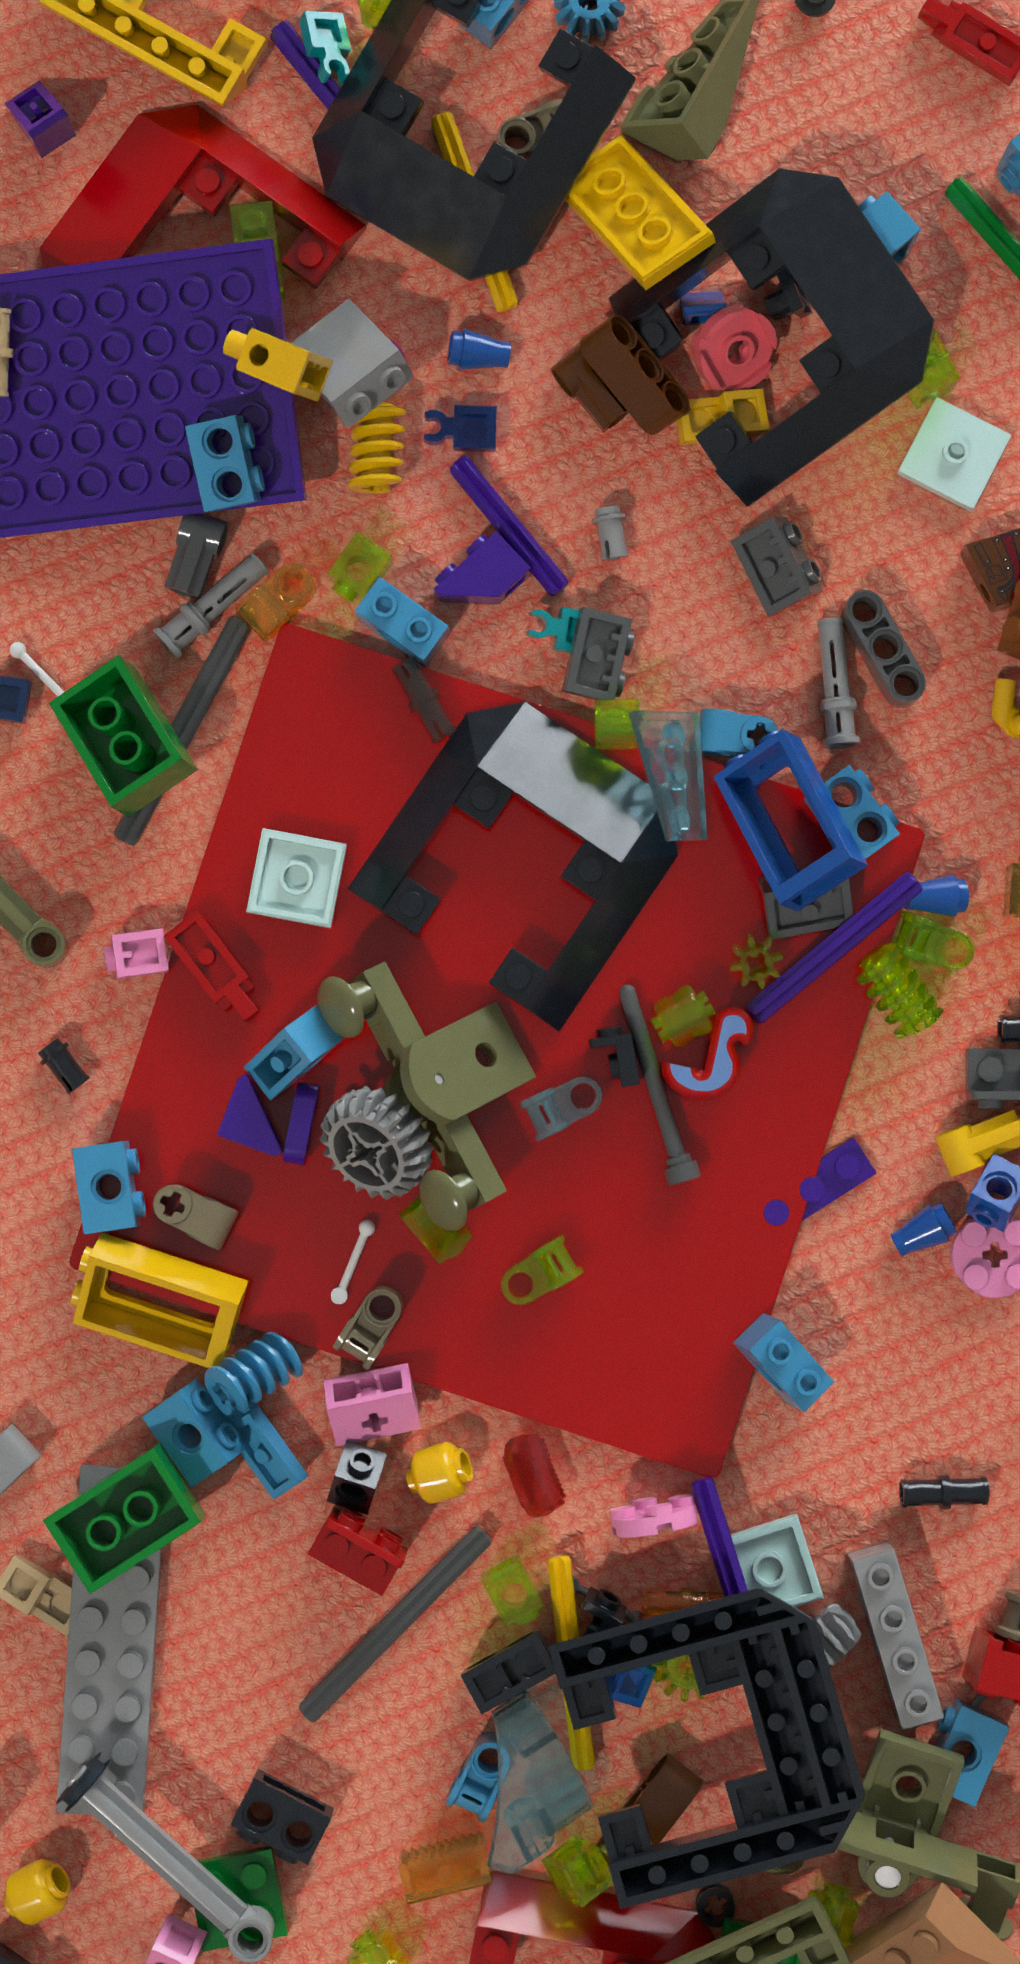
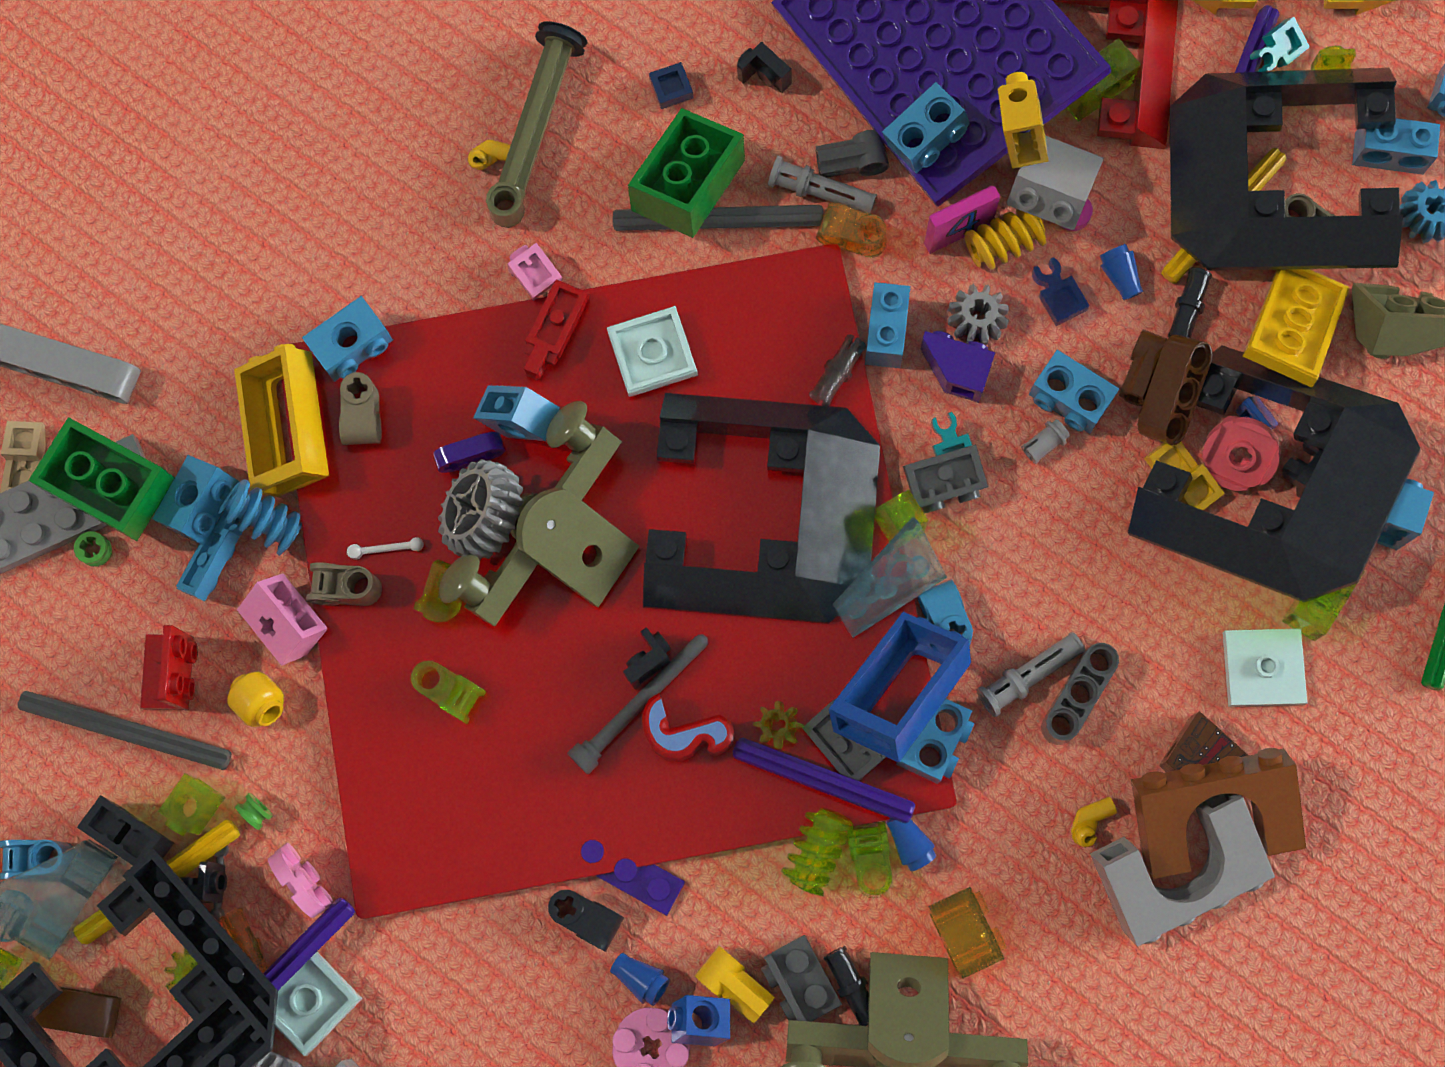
camera: 70 degrees right, 10 degrees down
(18, 650) = (711, 77): white hinge -> none
(49, 583) = (767, 65): none -> black bracket
(63, 1065) = (424, 265): black pin -> none
(185, 1579) = (87, 538): none -> bright green bush
(248, 1120) = (451, 412): dark purple slope -> none
(334, 482) = (953, 221): none -> dark pink tile
(356, 1477) = (220, 637): black brick -> none
(359, 550) = (919, 263): clear neon green brick -> none
(433, 510) = (985, 304): none -> light grey gear
(508, 525) = (1006, 365): dark purple axle -> none
(533, 1475) = (289, 772): clear red piece -> none
(550, 305) = (1190, 303): none -> black pin
(553, 1530) = (253, 811): none -> bright green bush
(558, 1107) = (580, 635): clear light blue piece -> none
(571, 467) = (1078, 384): none -> dark azure brick
(632, 1685) = (158, 938): blue slope -> none
(683, 1016) = (704, 691): clear neon green piece -> none
(778, 564) = (1097, 578): dark grey bracket -> none
(783, 1362) = (474, 919): dark azure brick -> none
(844, 1250) = (590, 922): none -> black piece

